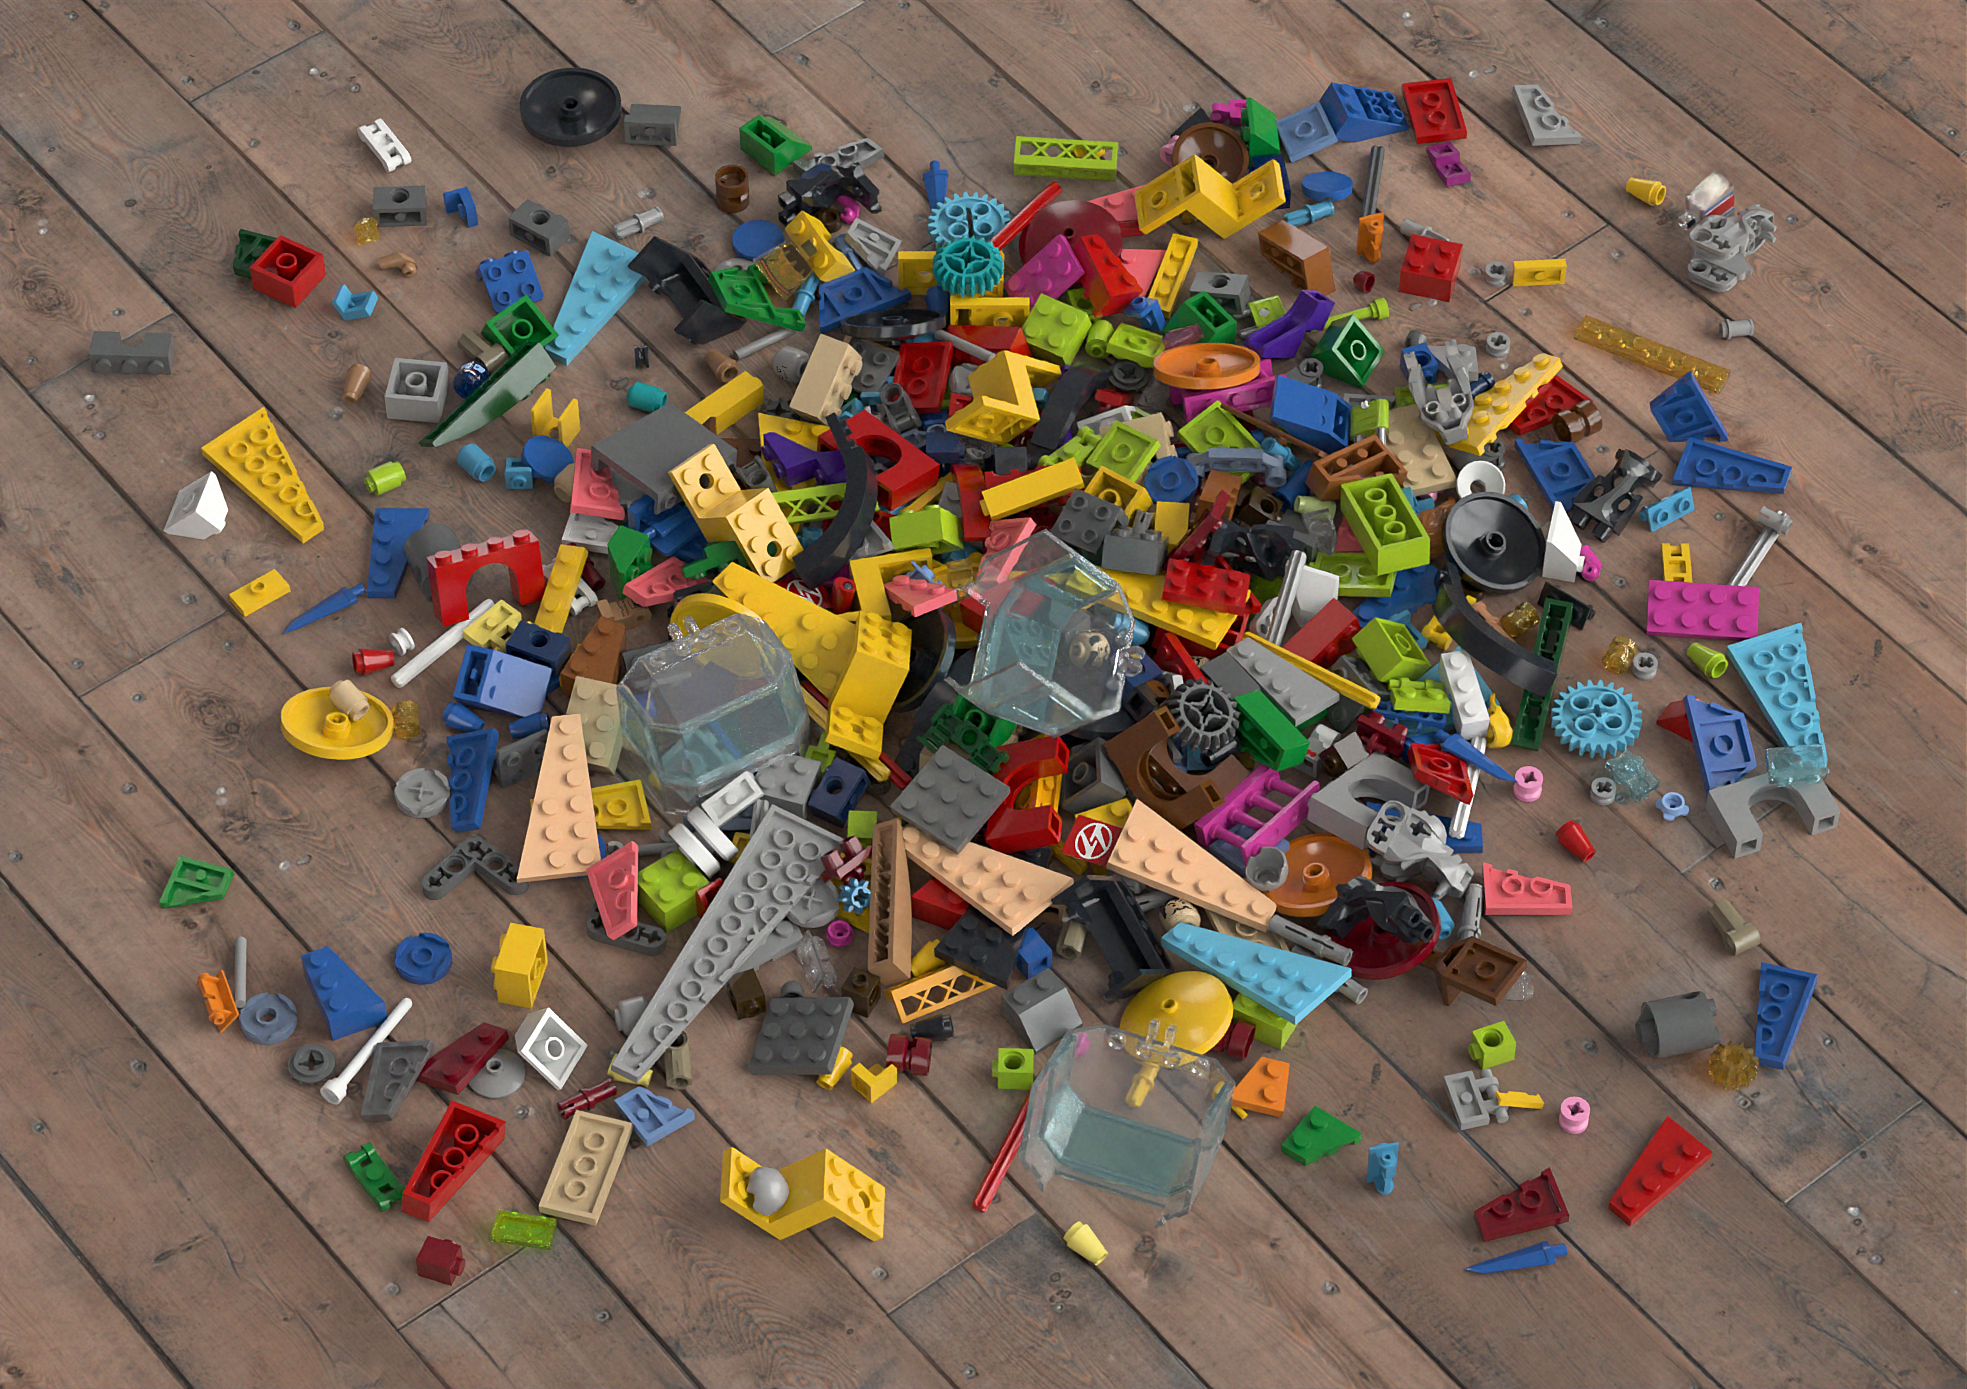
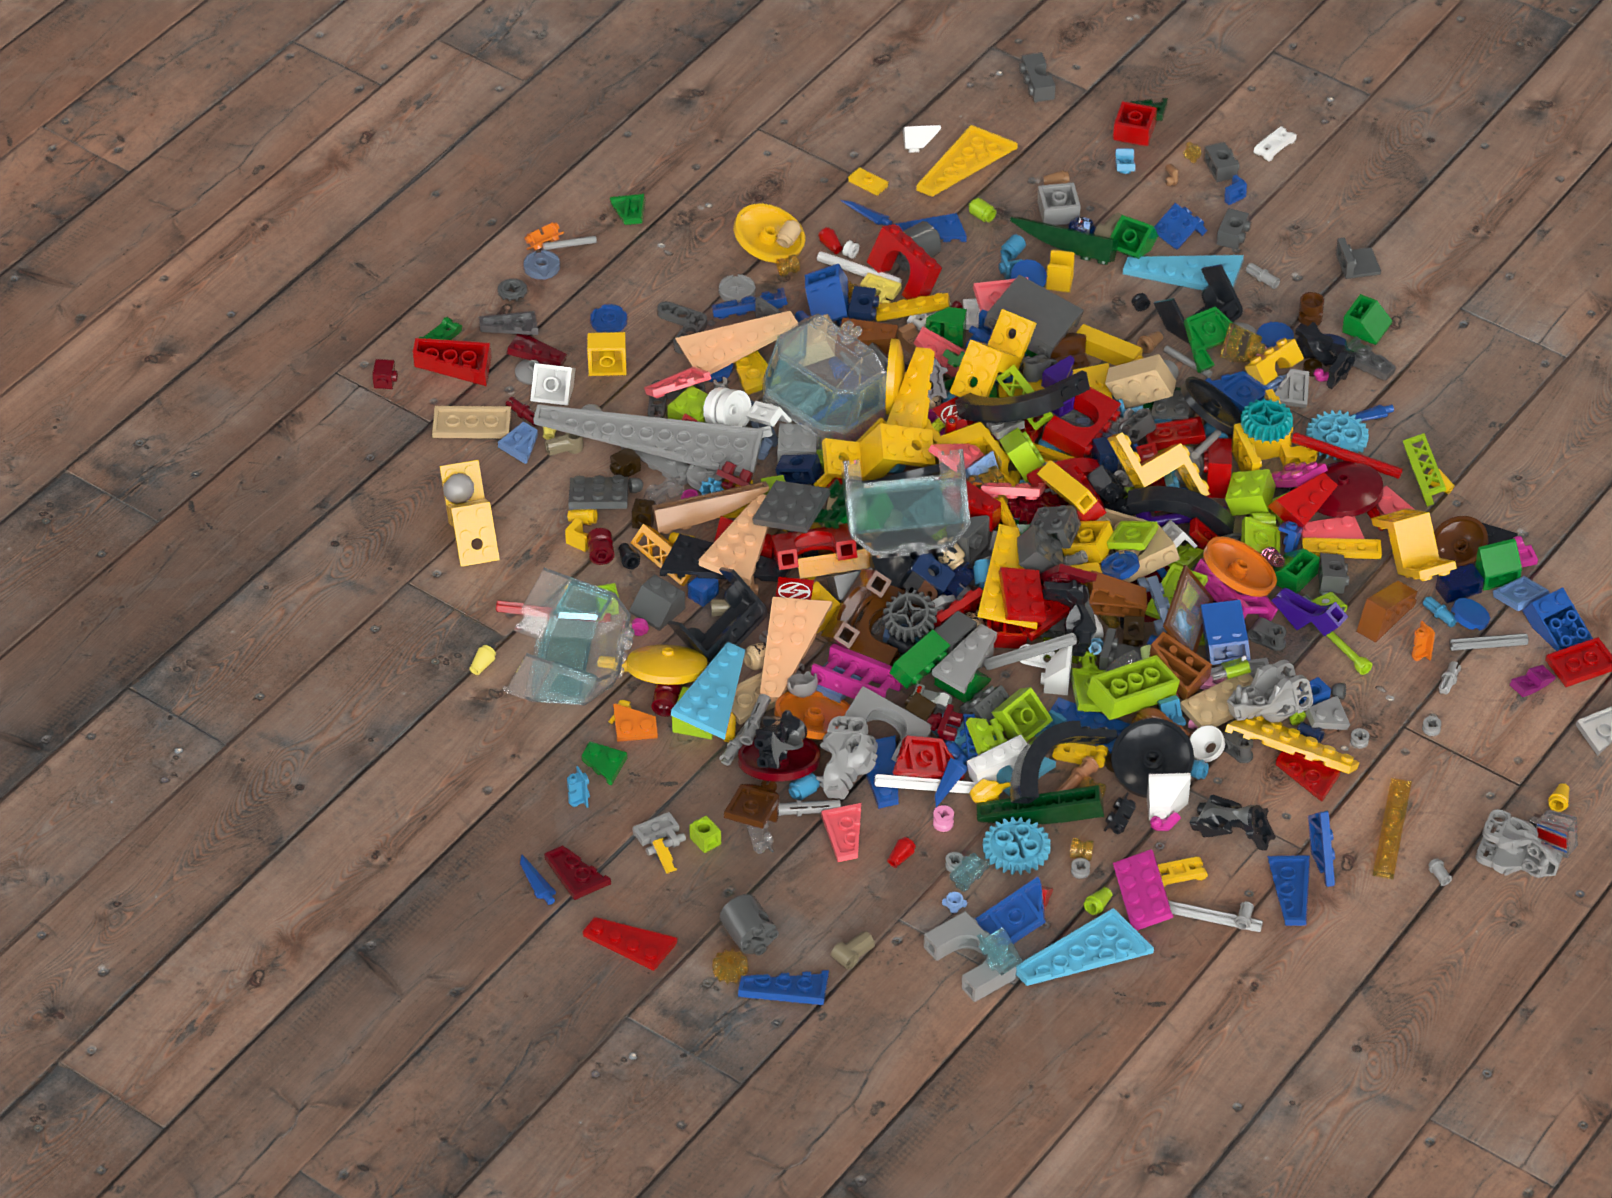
camera: 75 degrees right, 5 degrees down
(335, 1089) = (496, 302): white piece -> none
(341, 994) = (563, 285): blue wedge -> none
(461, 718) = (798, 290): blue cone -> none
(524, 1230) = (417, 405): clear neon green plate -> none
(570, 107) = (1347, 215): black dish -> none
(646, 397) = (1104, 312): teal brick -> none
(805, 295) = (1229, 368): dark azure axle -> none
(1074, 448) = (1122, 512): lime plate -> none
(1326, 635) = (1018, 675): red wedge -> none
(1326, 677) = (984, 673): yellow axle -> none
(1348, 351) = (1309, 654): green slope -> none
(1364, 281) = (1386, 653): dark red hinge -> none
(1430, 268) = (1414, 684): red brick -> none
(1539, 272) = (1441, 747): yellow plate -> none
(1556, 469) = (1248, 787): blue wing -> none
(1578, 422) = (1298, 791): reddish brown wheel -> none
(1579, 1120) = (665, 891): bright pink wheel -> none
(1668, 509) = (1237, 858): dark azure hinge -> none

